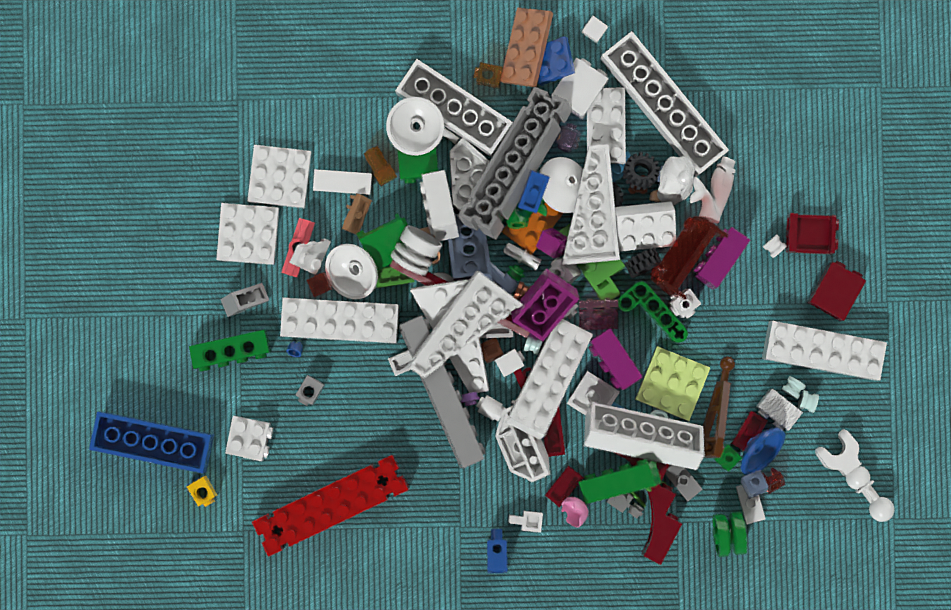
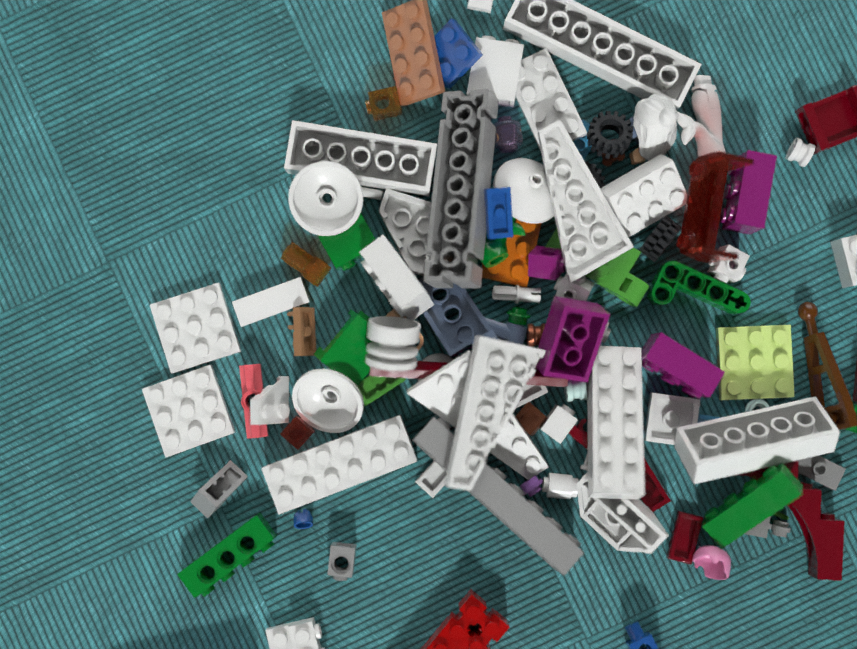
camera: 25 degrees left, 0 degrees up
(530, 521) = (664, 596): white plate -> none
(598, 318) = (637, 326): clear pink plate -> none

